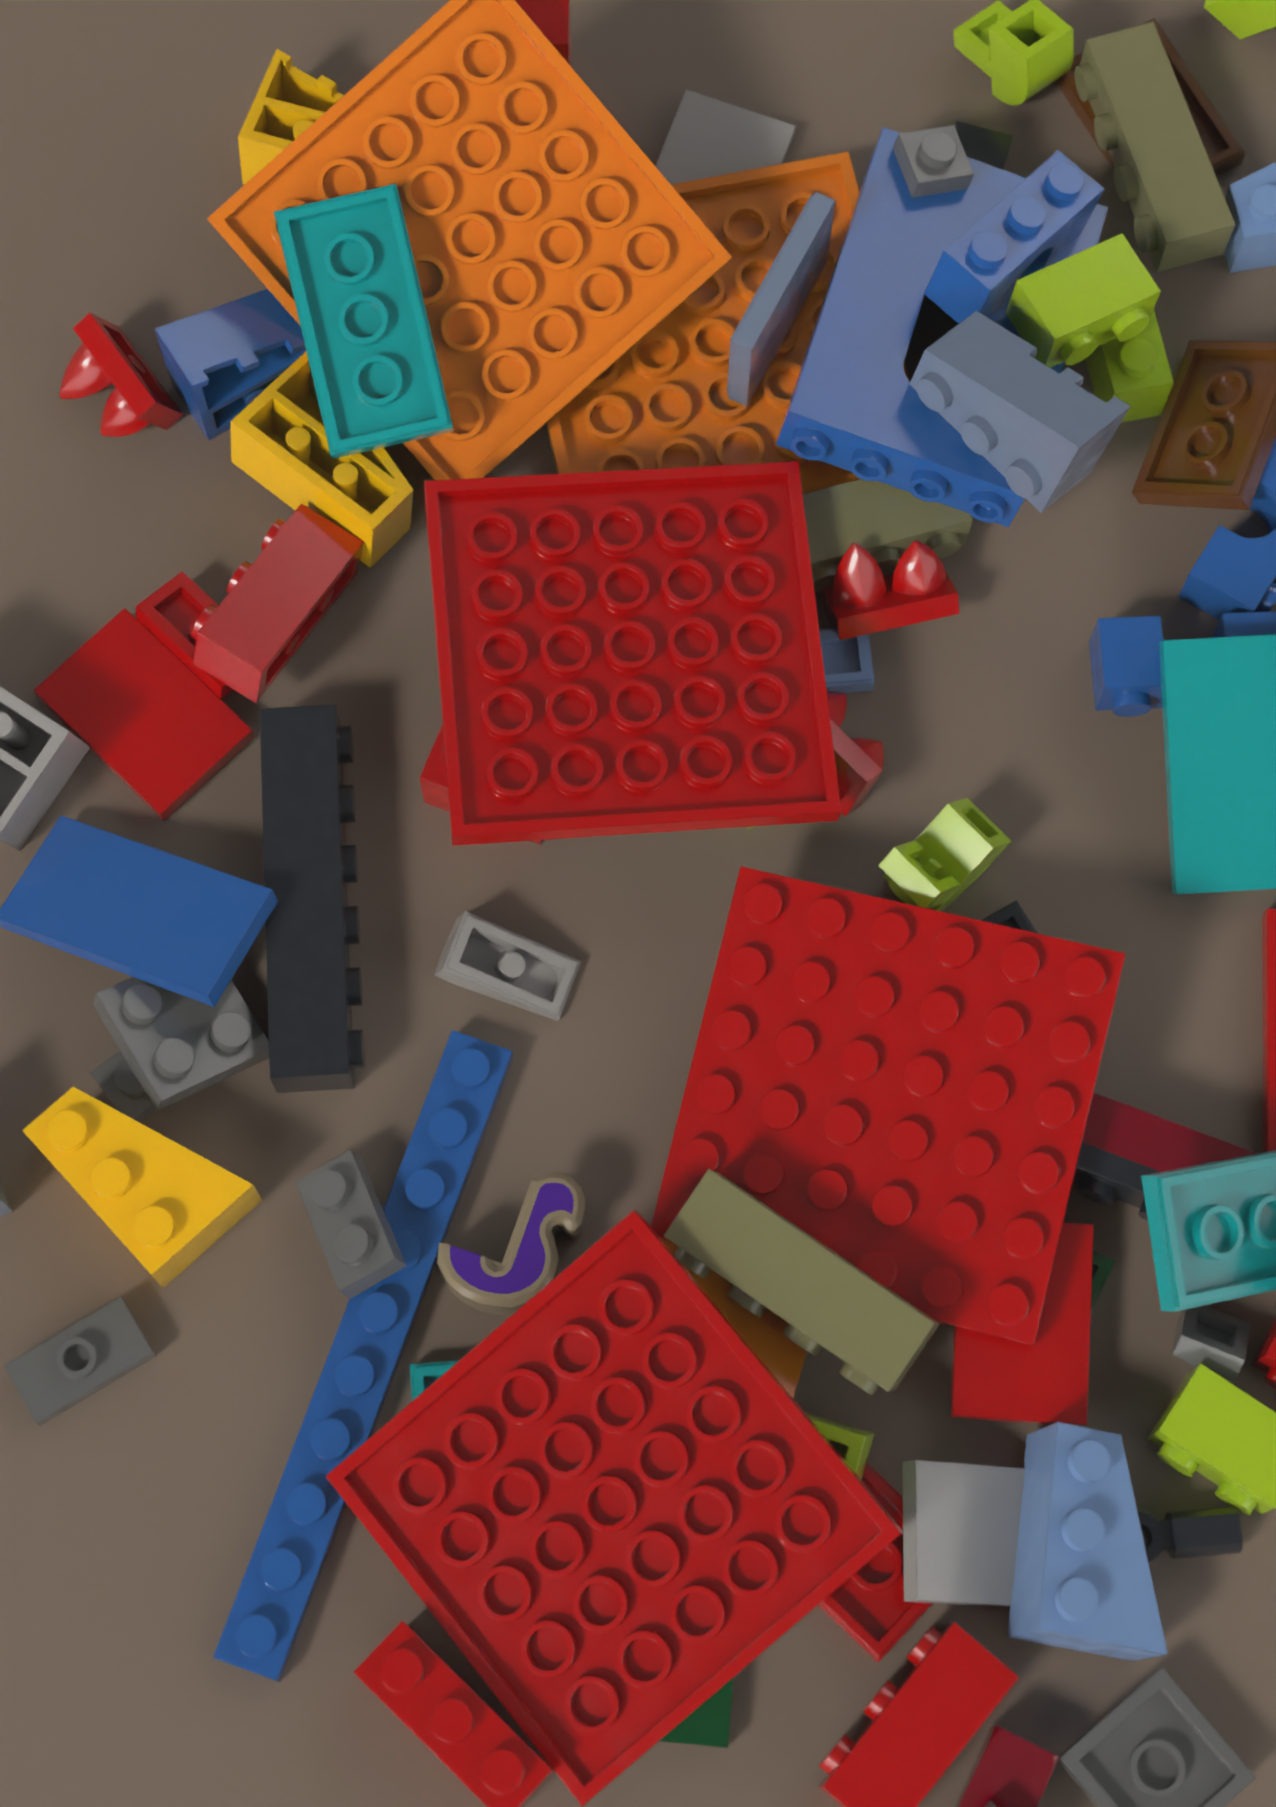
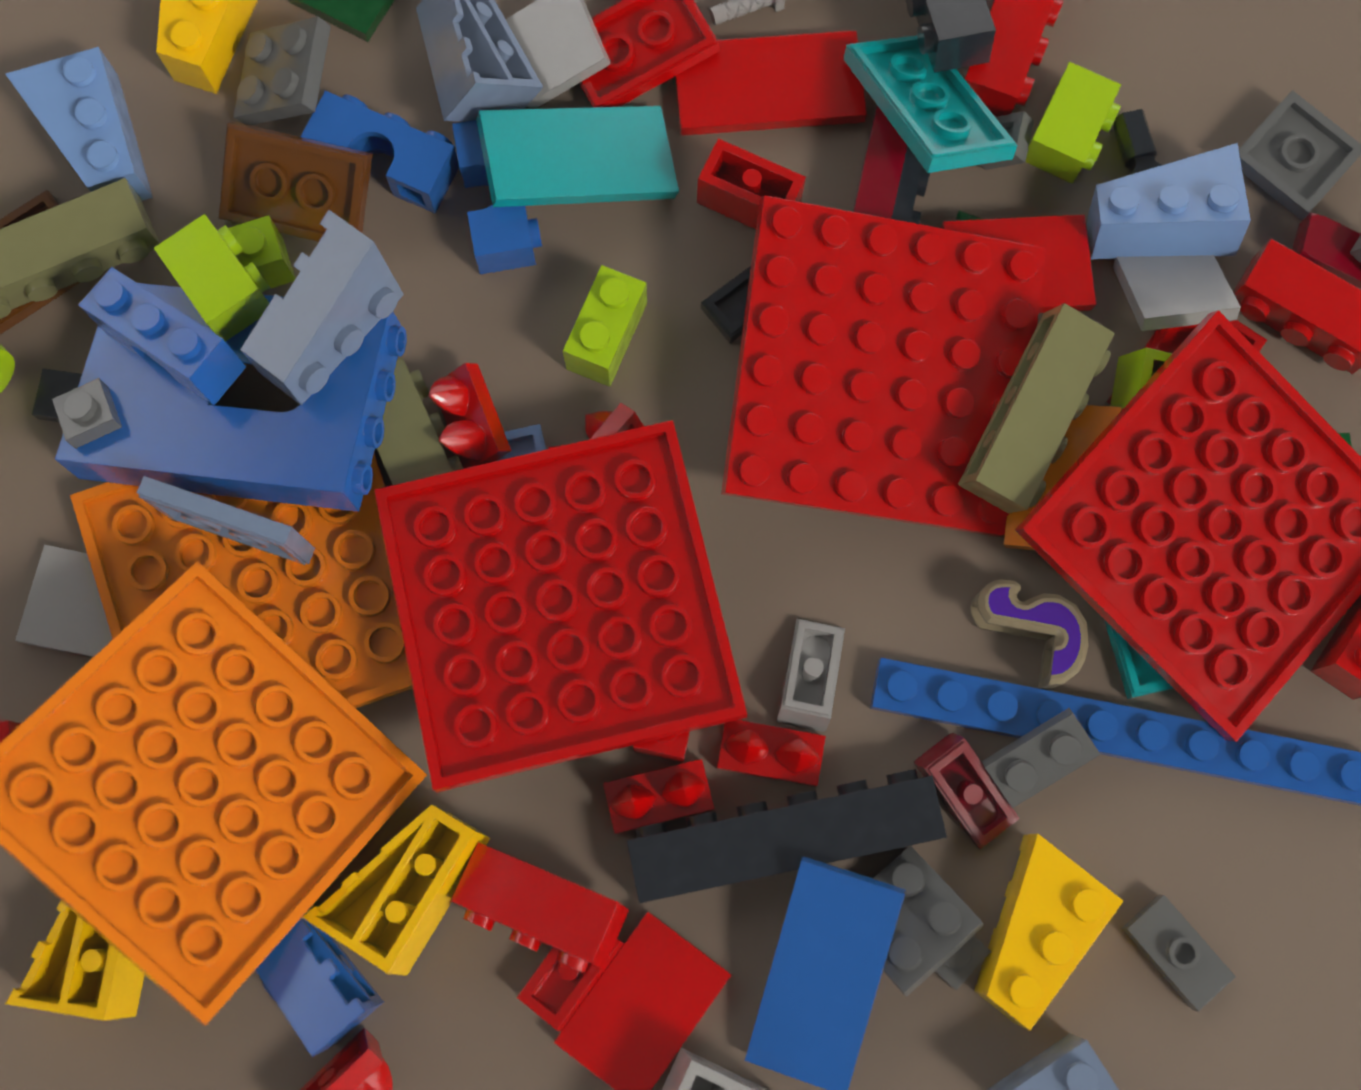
camera: 100 degrees left, 5 degrees up
(346, 1118) = (967, 789): none -> dark red slope
(363, 321) = (287, 866): teal tile -> none
(386, 764) = (658, 796): none -> red tile
(417, 903) = (771, 752): none -> red tile
(944, 857) = (681, 354): lime brick -> none
(993, 770) = (605, 325): none -> lime brick
(1165, 973) = (738, 179): none -> red brick

